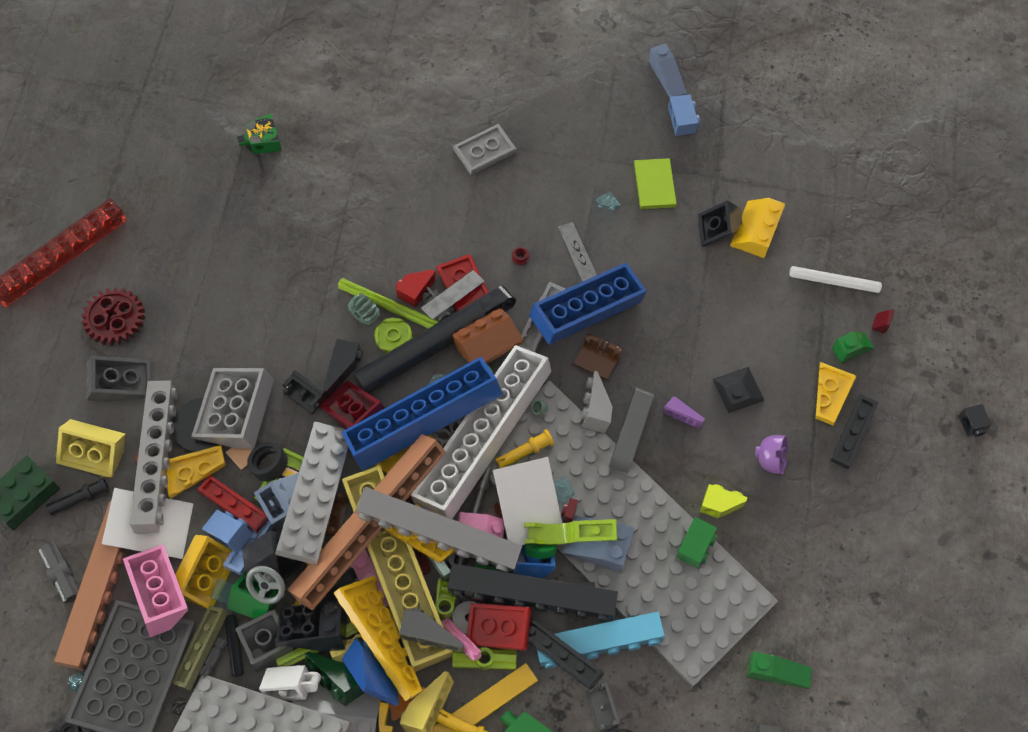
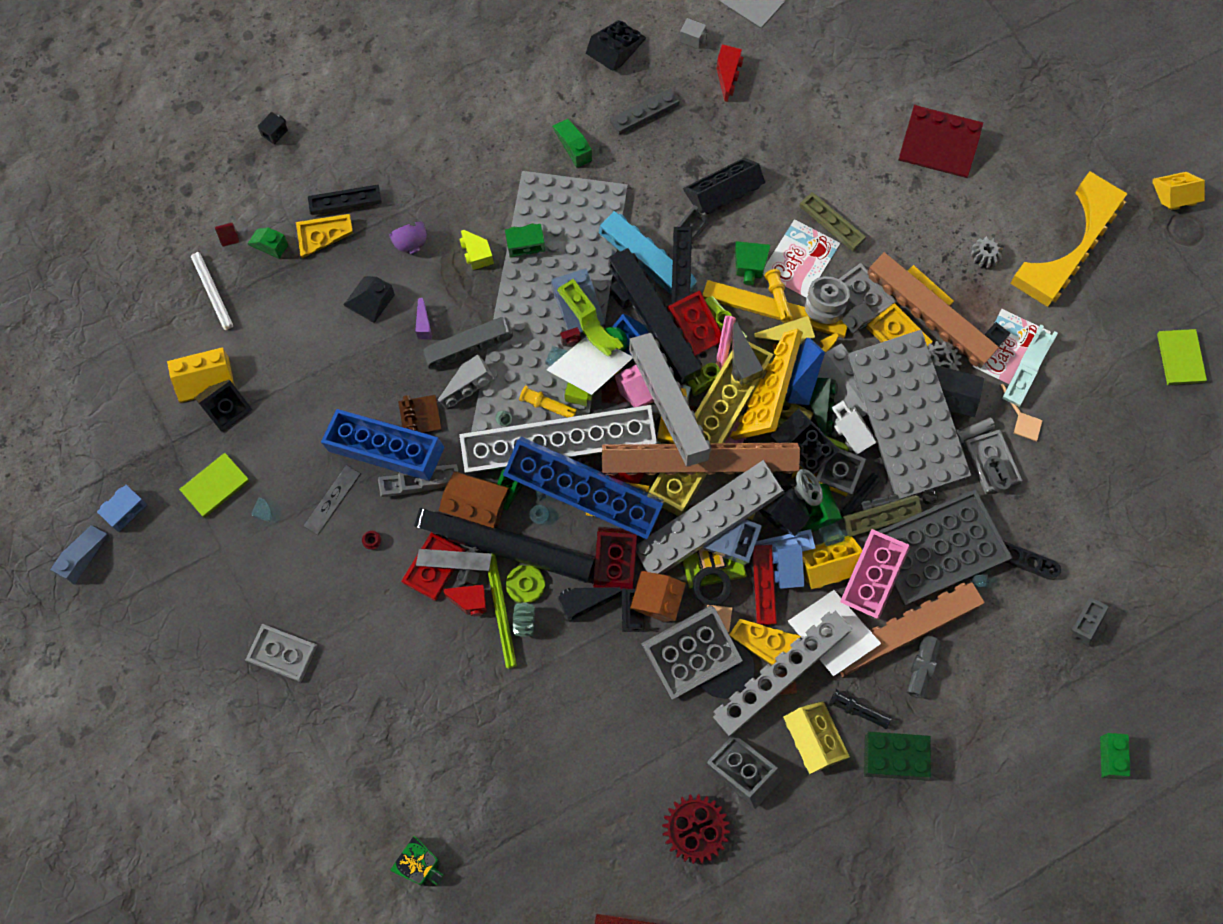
camera: 125 degrees left, 5 degrees up
(294, 414) = (658, 596): none -> dark orange slope

